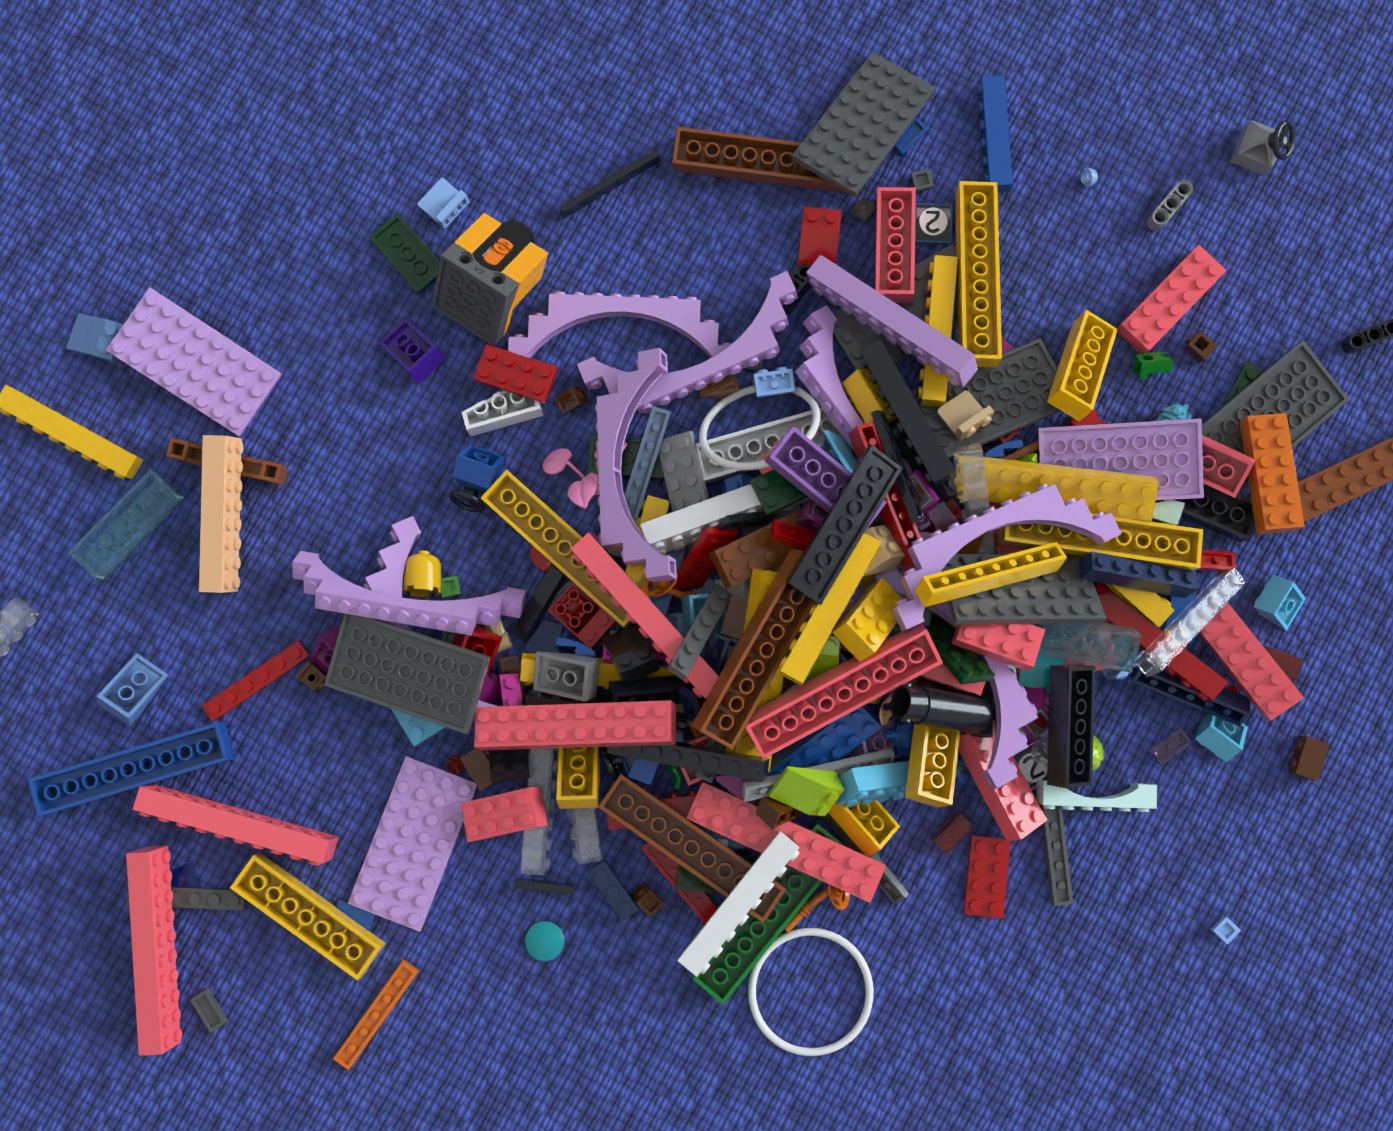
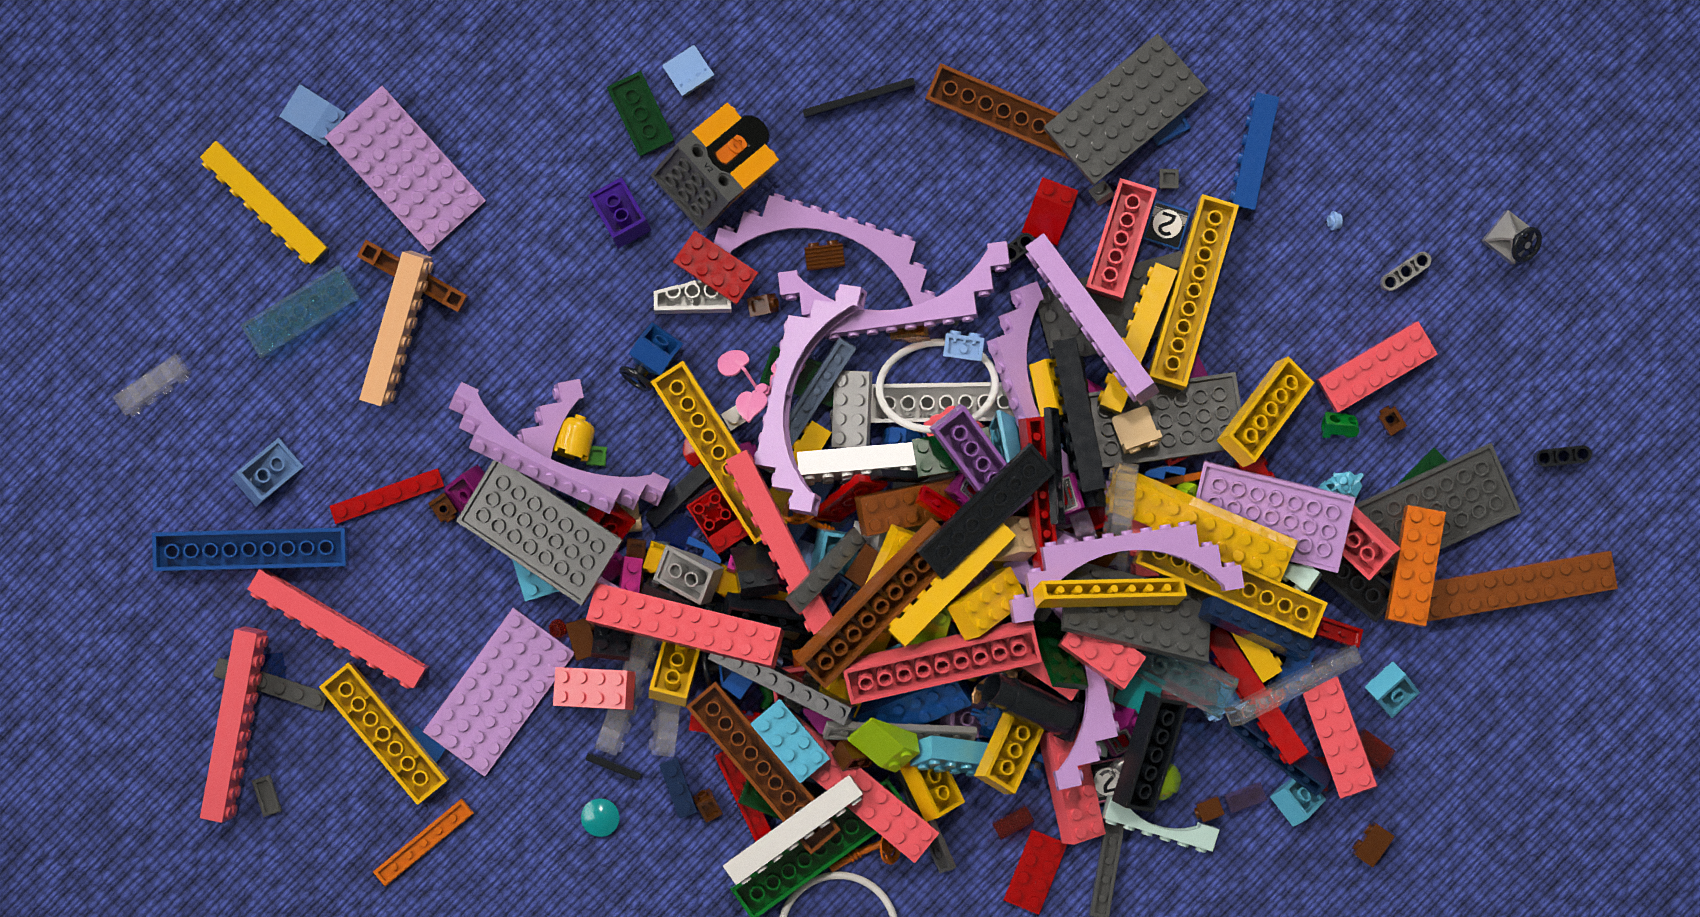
camera: 15 degrees right, 5 degrees up
(572, 514) = (732, 418): none -> white plate
(617, 338) = (824, 256): none -> reddish brown brick
(689, 702) = (797, 633): dark blue plate -> none
(711, 813) = (790, 740): none -> medium azure brick
(1138, 767) = (1208, 809): none -> reddish brown brick

